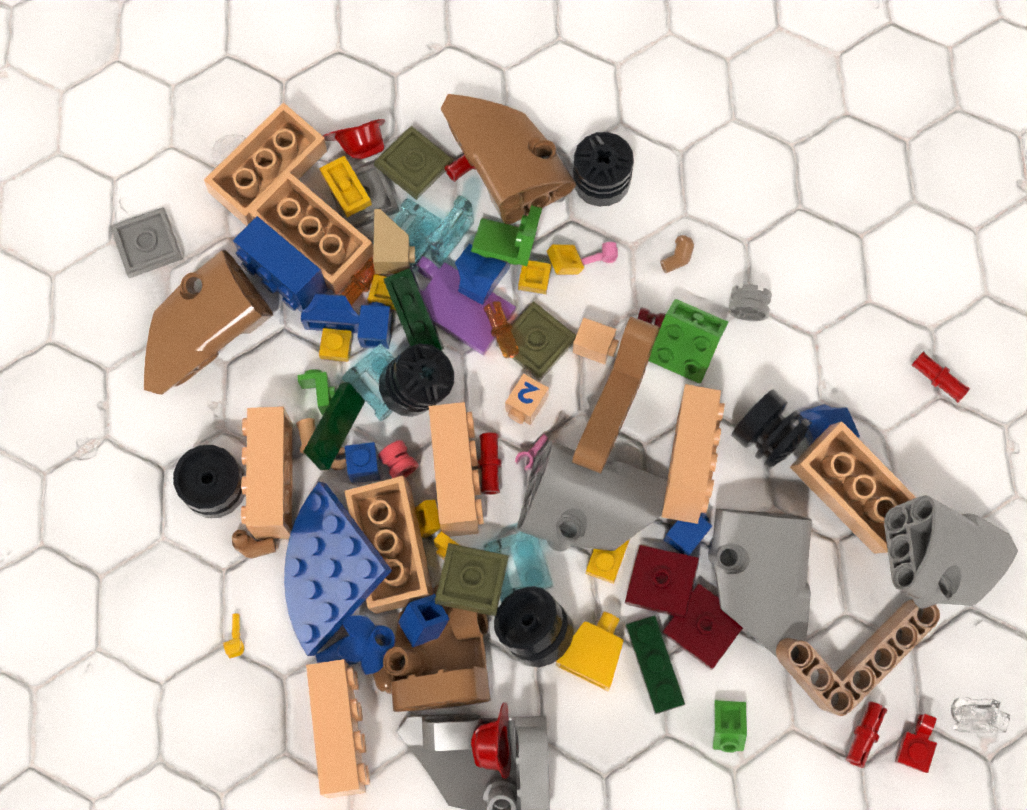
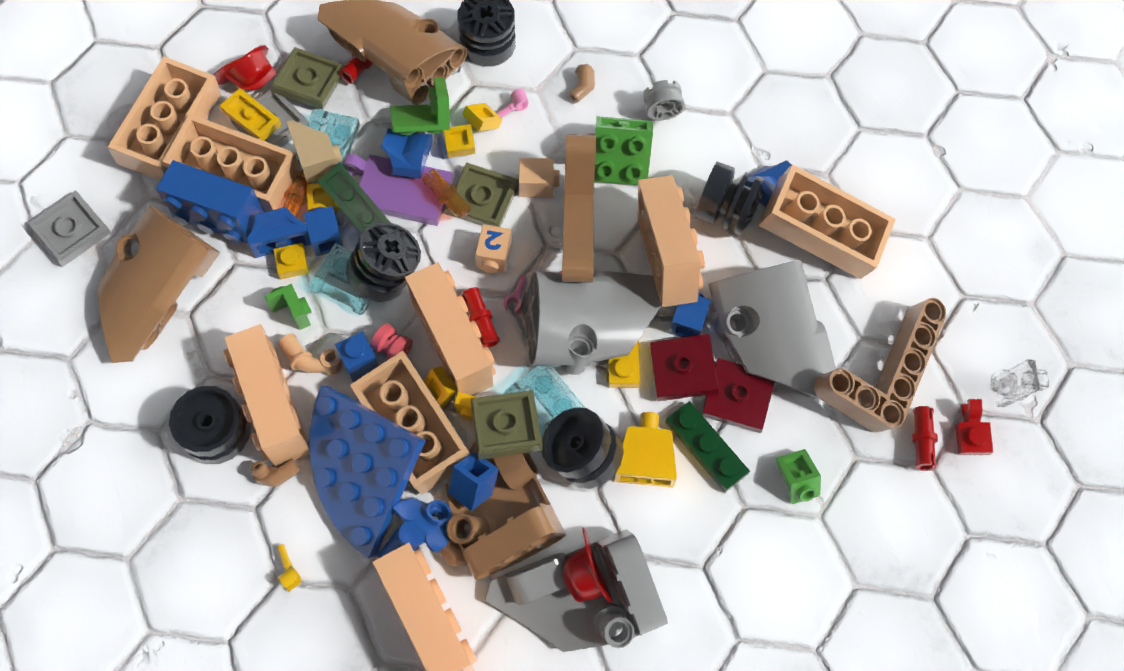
camera: 25 degrees left, 5 degrees down
(334, 426) = (317, 331): dark green plate -> none
(451, 230) = (366, 122): clear light blue plate -> none
(940, 377) = (853, 111): red pin -> none
(944, 553) = (933, 245): light grey panel -> none

